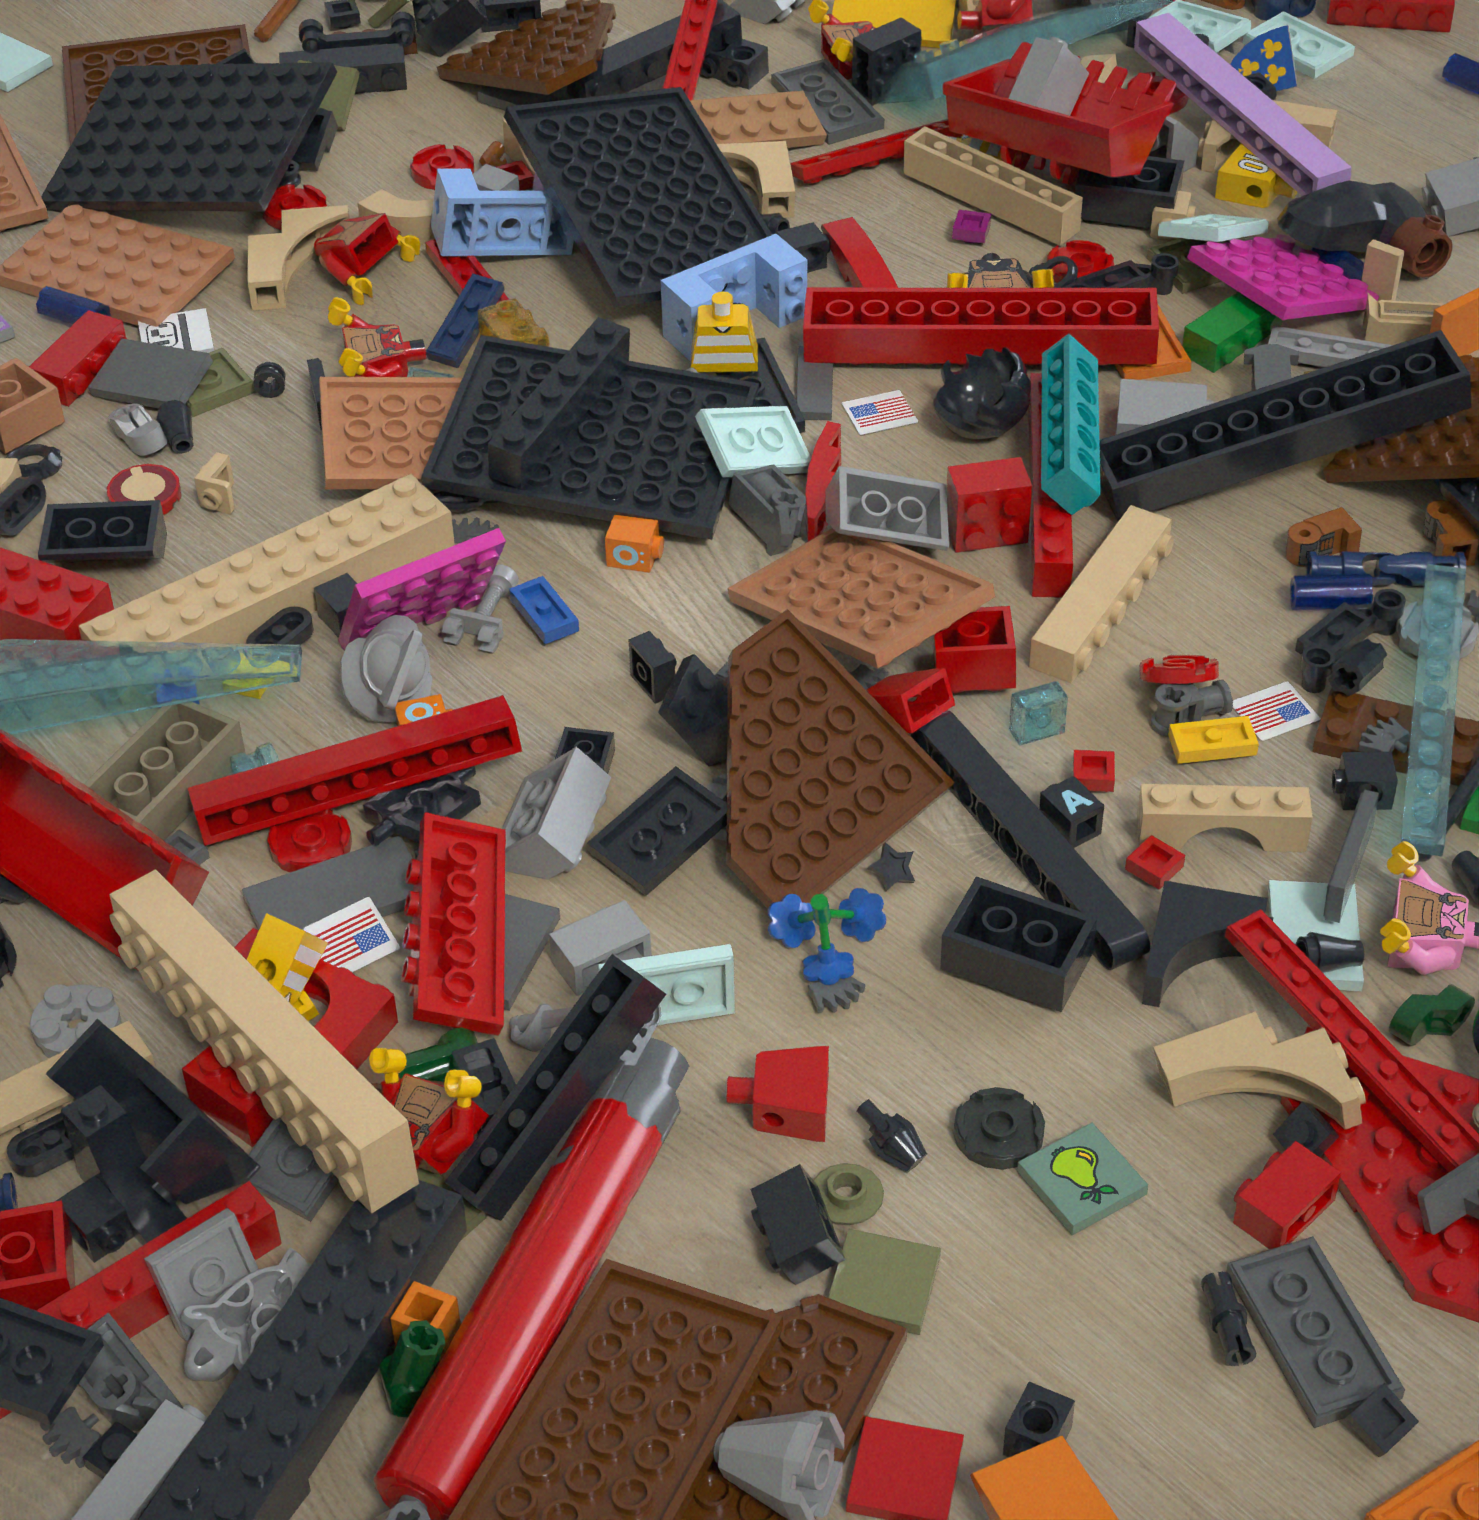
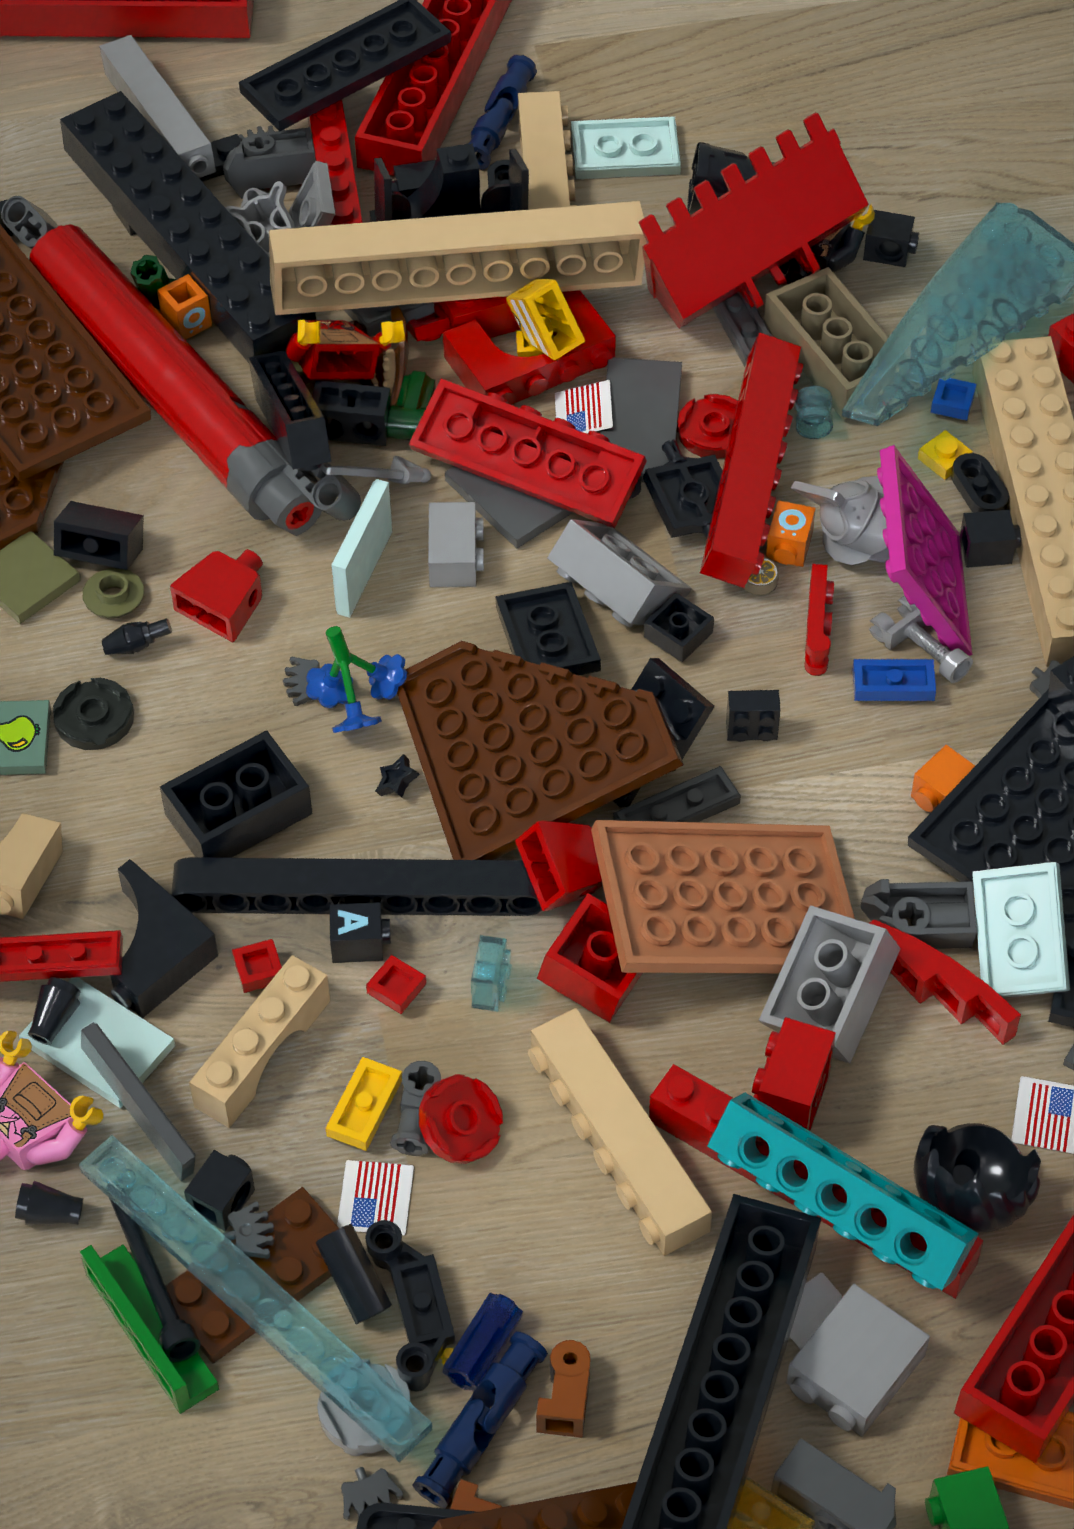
camera: 120 degrees right, 10 degrees up
(513, 673) = (818, 621): none -> red plate

